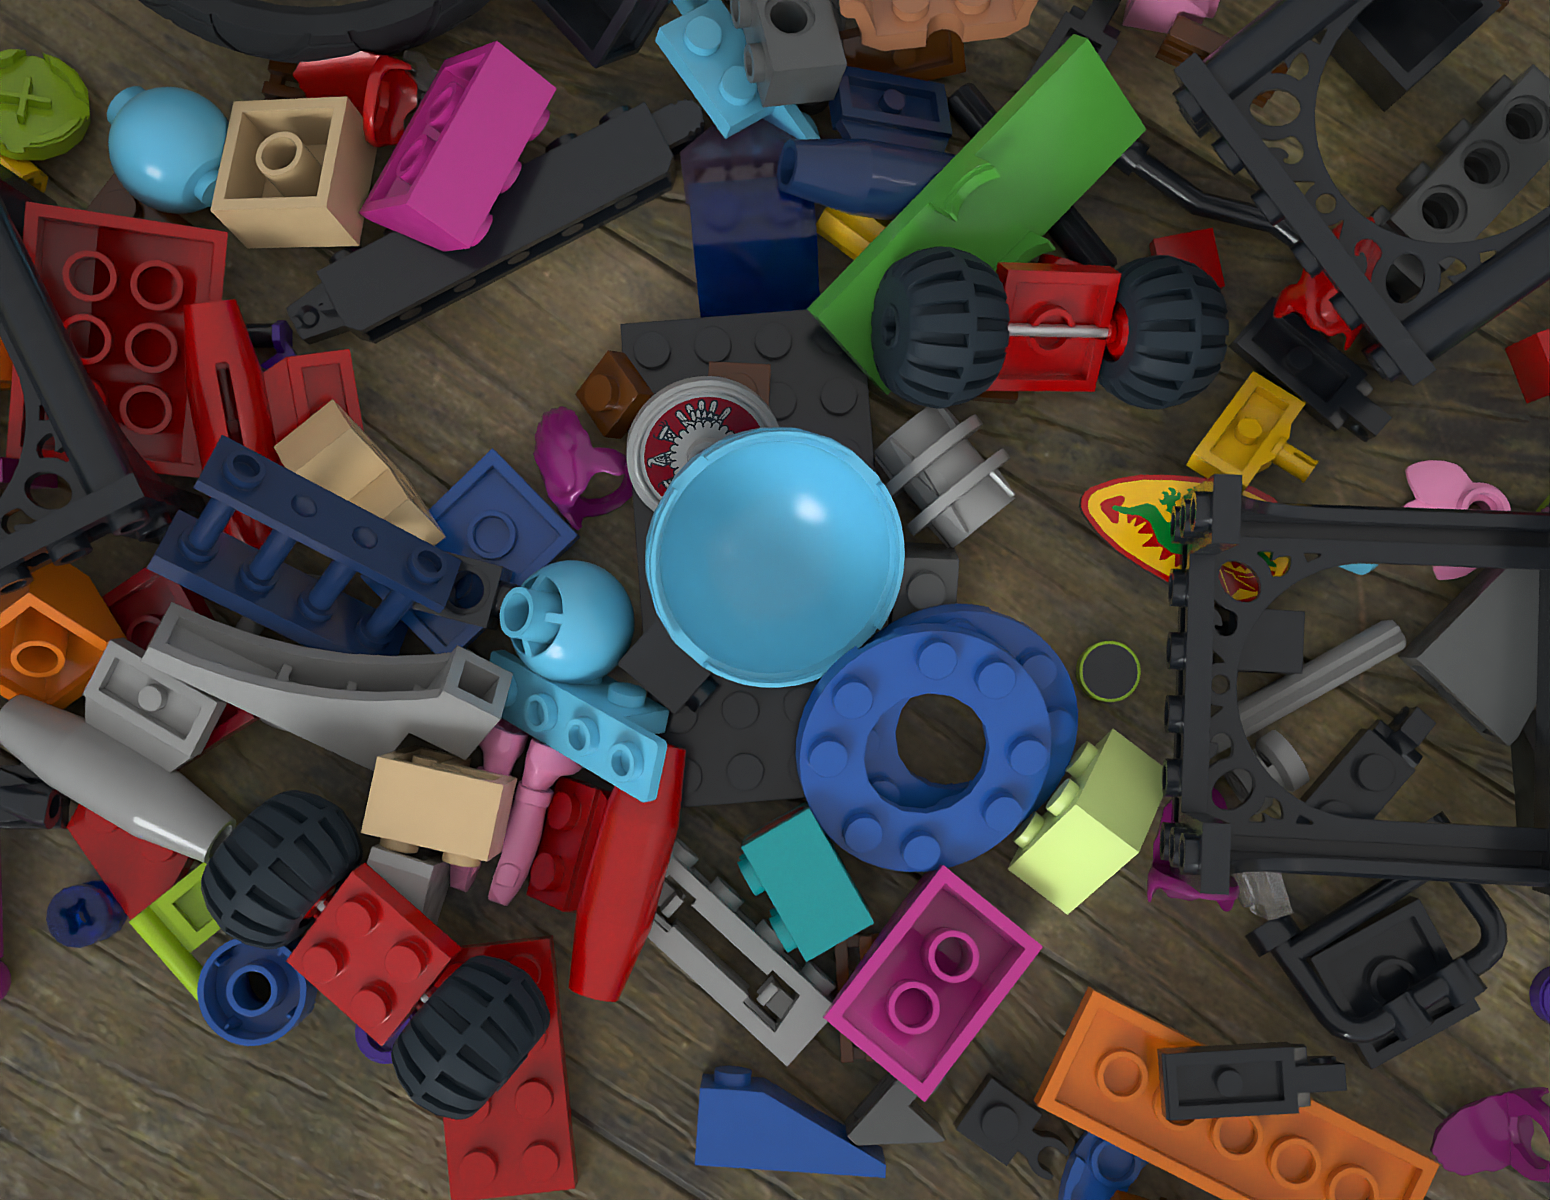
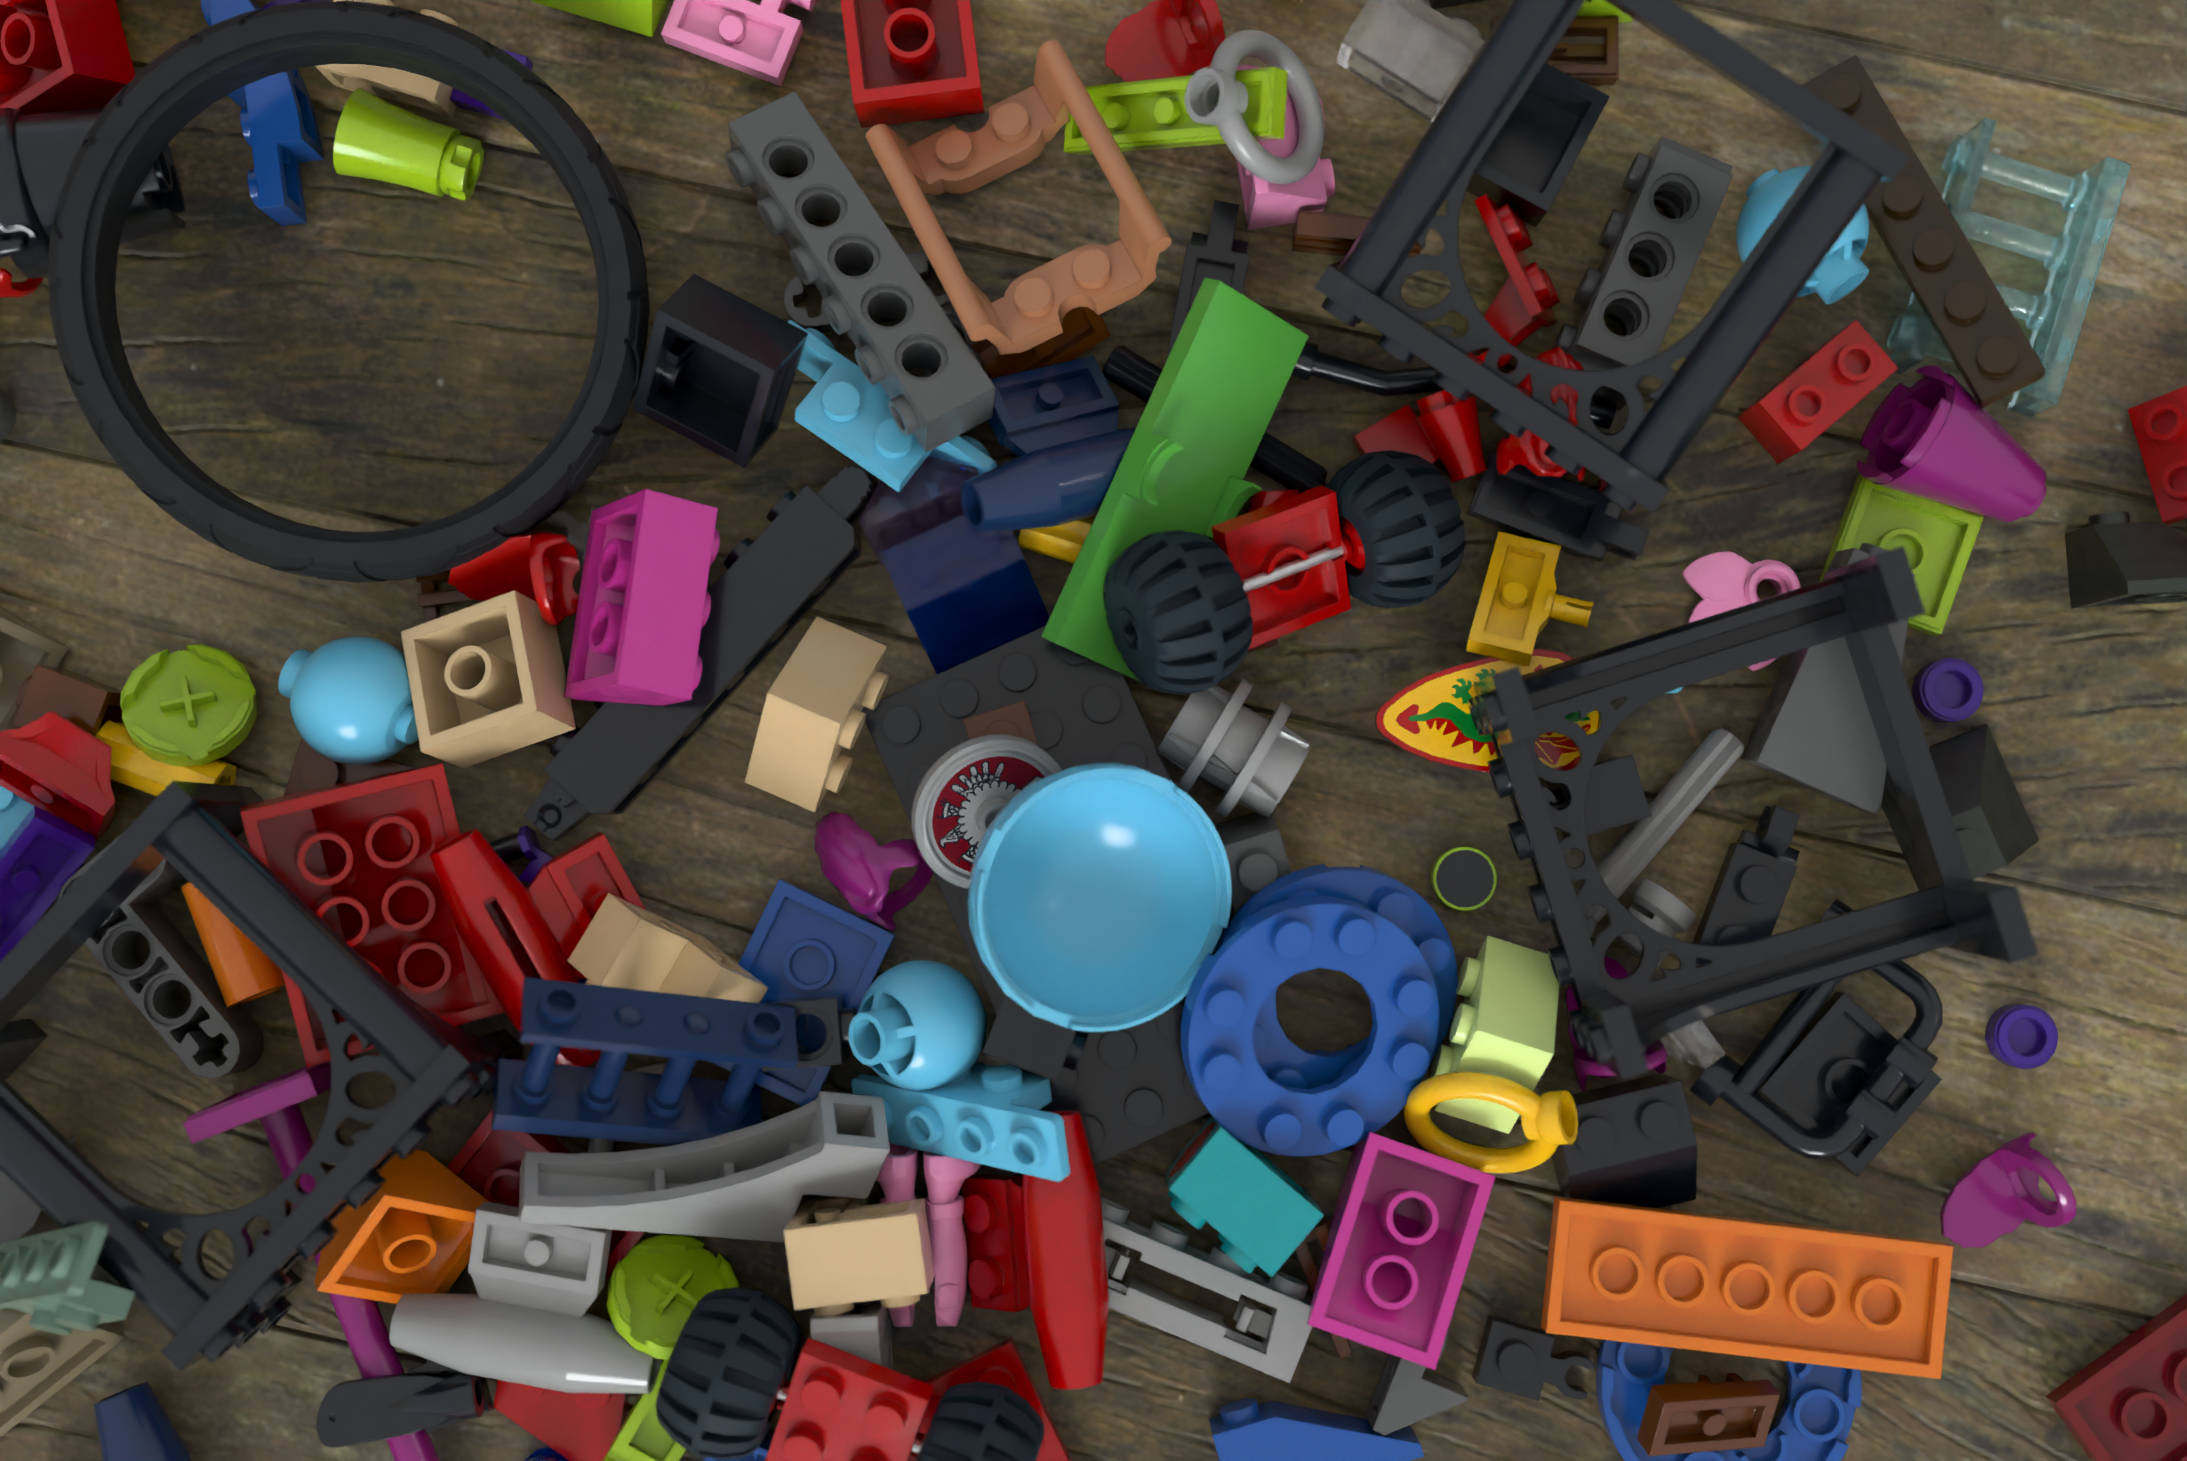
camera: 20 degrees left, 0 degrees up
(250, 769) = (659, 1287): none -> lime tile
(576, 309) = (816, 714): none -> tan brick
(614, 394) = (880, 782): reddish brown plate -> none
(1108, 910) = (1545, 1120): none -> yellow piece
(1169, 962) = (1631, 1145): none -> black slope
(1243, 1079) = (1734, 1235): black hinge -> none
(1245, 263) = (1453, 433): none -> red cone
(1359, 159) = (1529, 292): none -> red plate

